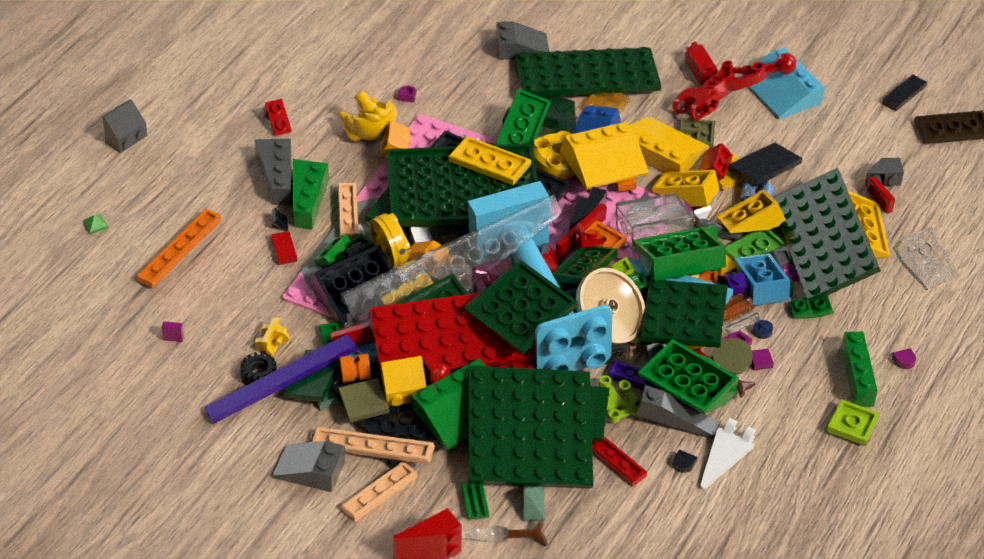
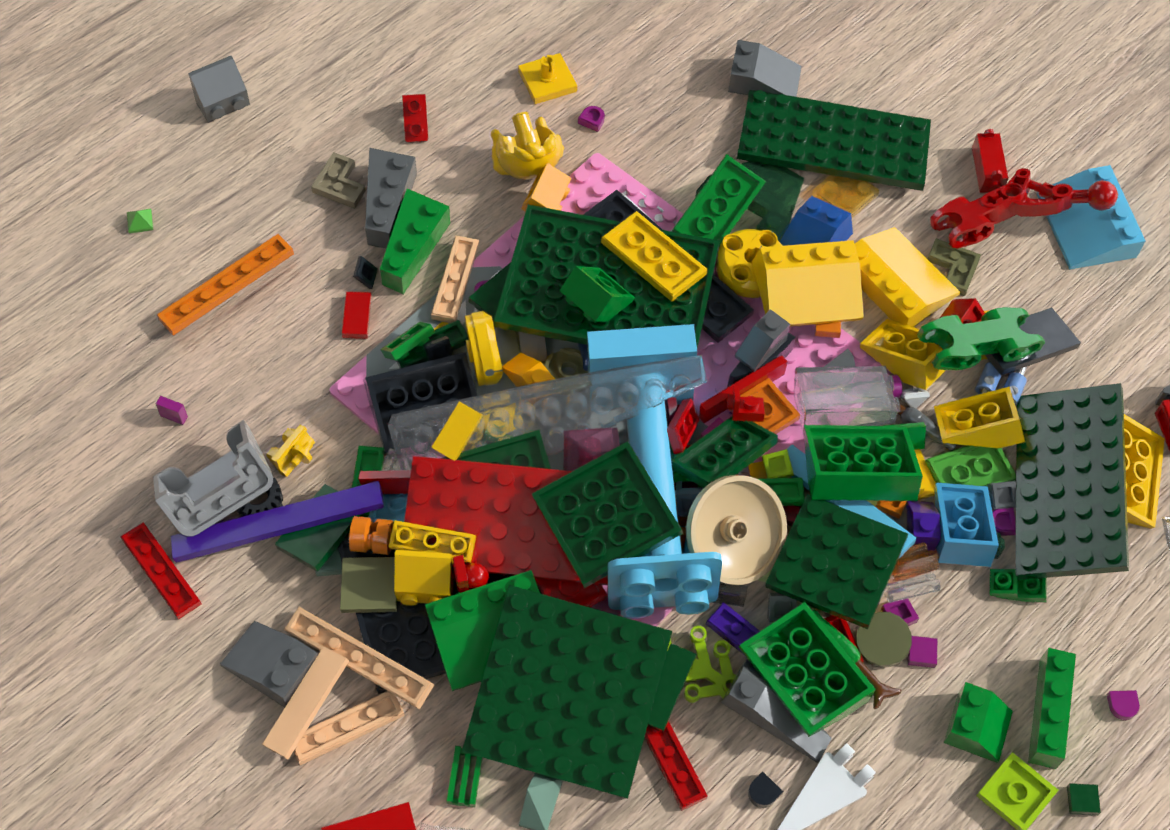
camera: 15 degrees right, 15 degrees up
(205, 430) = (161, 570): none -> red tile
(233, 365) = (216, 489): none -> light grey windscreen
(234, 170) = (333, 181): none -> dark tan plate
(346, 479) = (305, 702): none -> light nougat tile
(364, 75) = (547, 78): none -> yellow tile
(387, 354) = (415, 538): none -> yellow tile
(396, 285) = (457, 431): none -> yellow tile
(458, 188) = (595, 293): none -> green slope
(586, 194) = (763, 340): none -> dark grey slope
(727, 167) = (968, 342): none -> green piece
(763, 329) = (941, 603): dark blue tile -> none
(813, 388) = (979, 722): none -> green slope
(898, 417) = (1083, 799): none -> dark green tile

